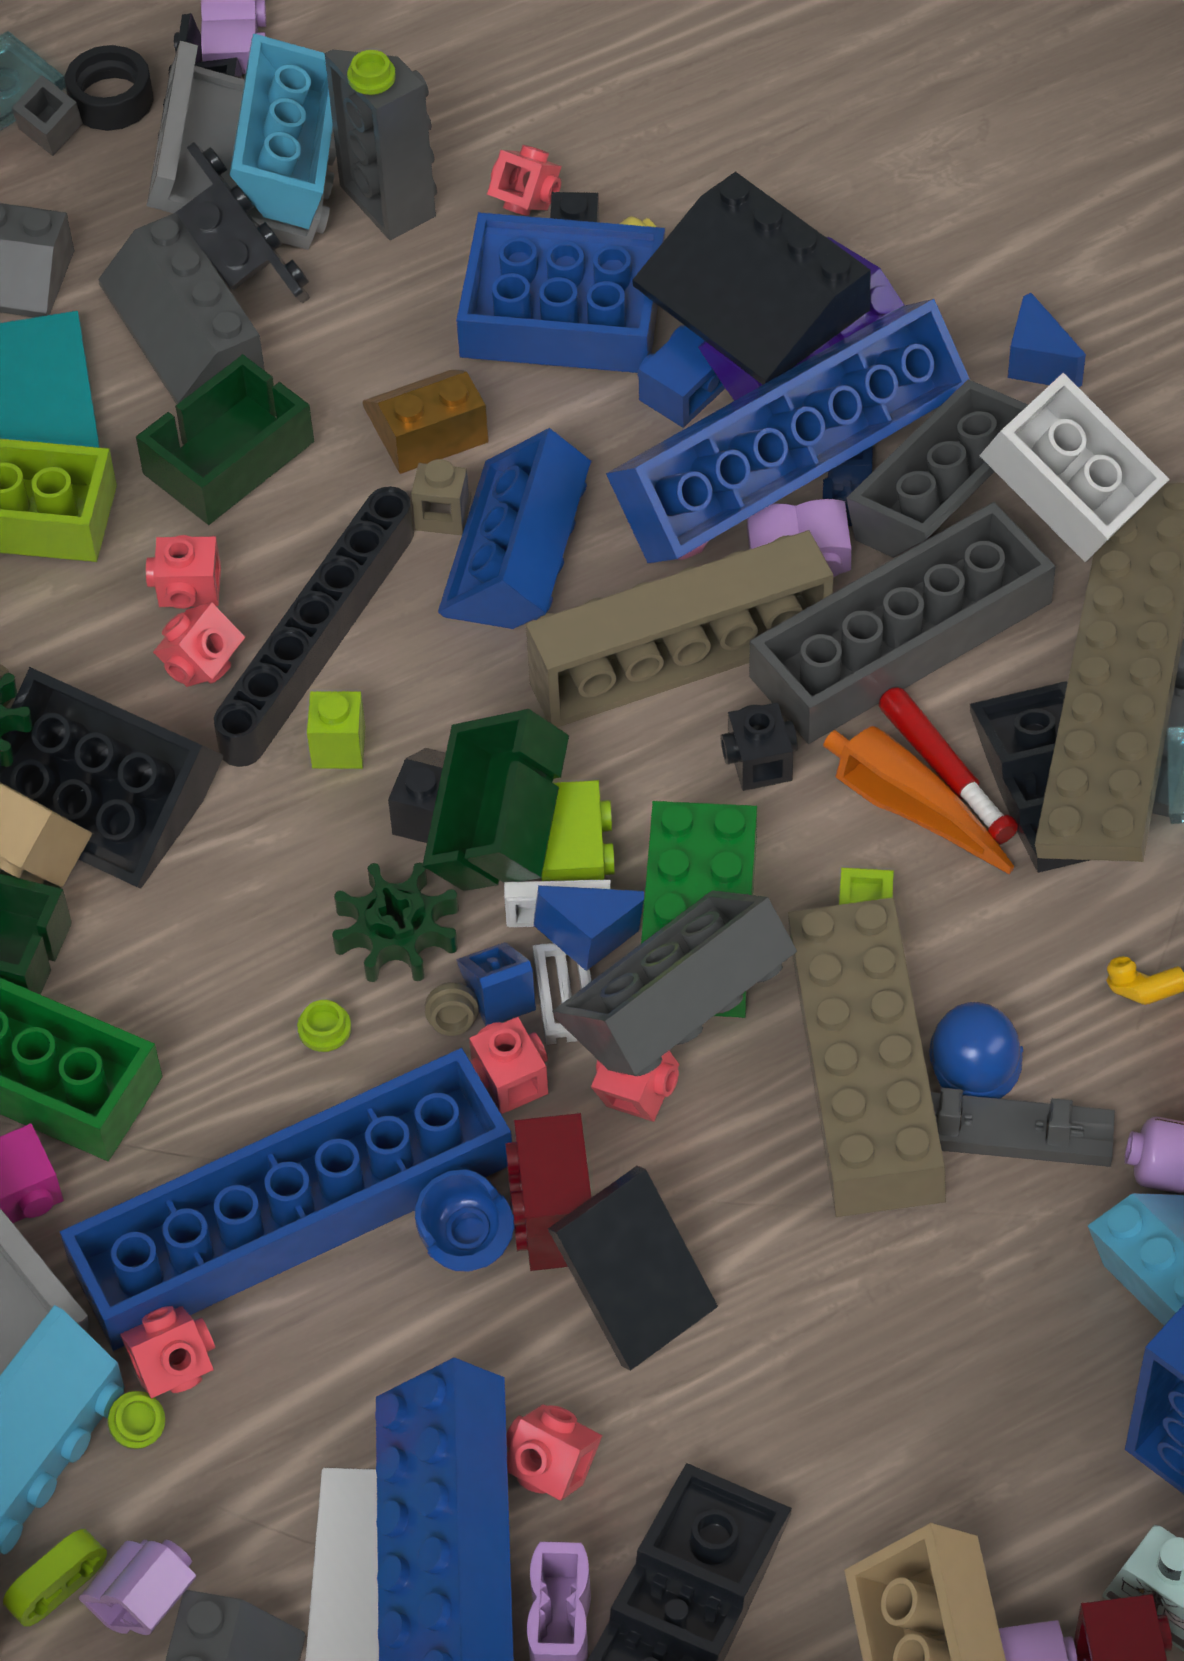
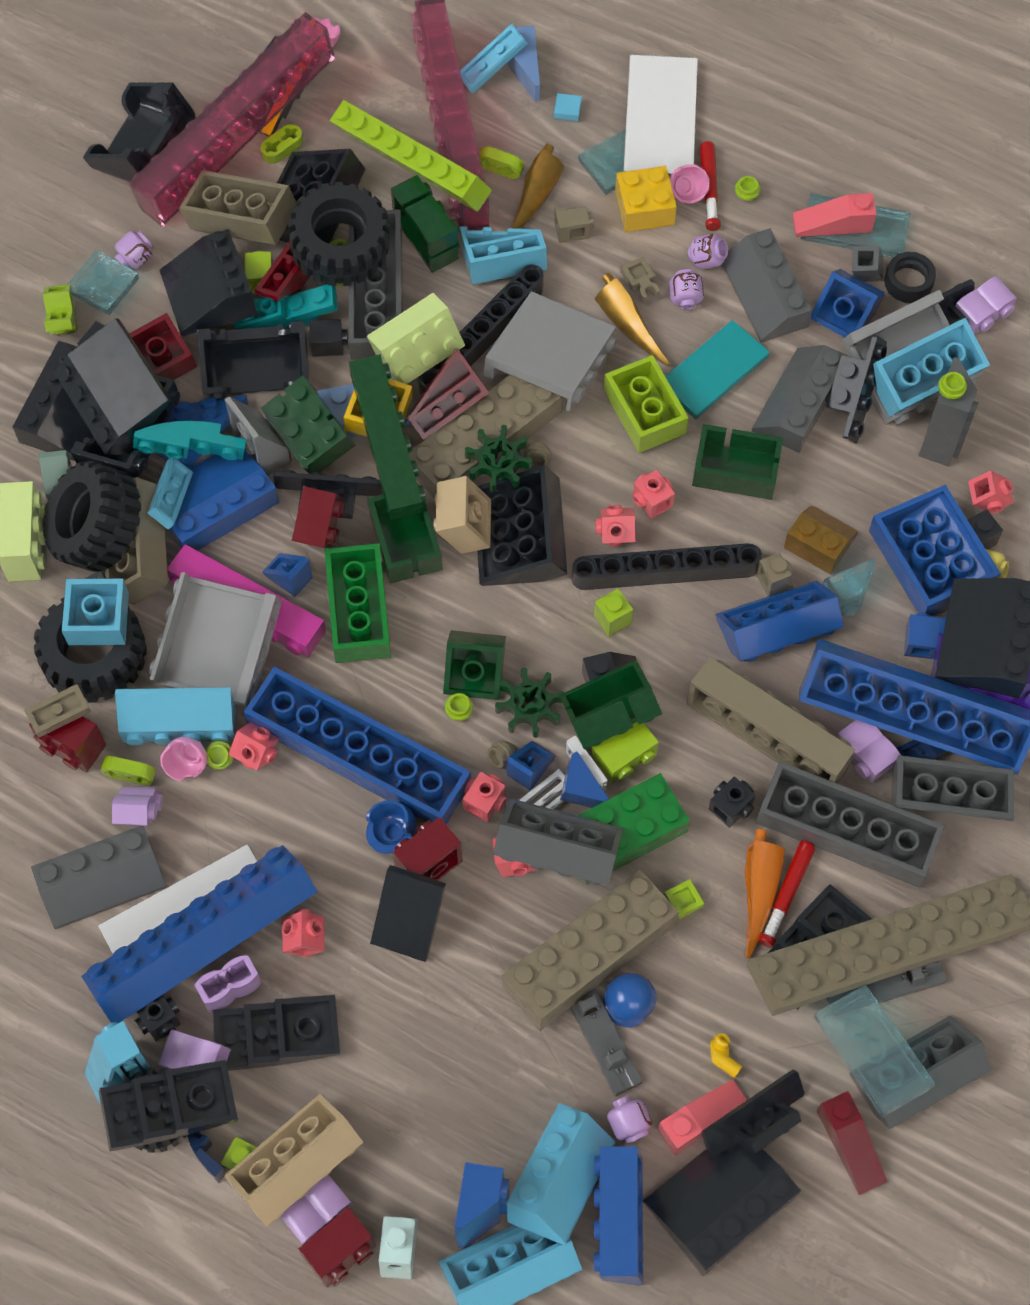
camera: 55 degrees right, 10 degrees up
(88, 178) = (846, 303): none -> blue slope
(105, 1469) = (184, 758): none -> bright pink hair
(272, 961) = (474, 664): none -> dark green slope
(534, 409) = (851, 586): none -> clear light blue slope
(1074, 467) = (984, 851): white brick -> none

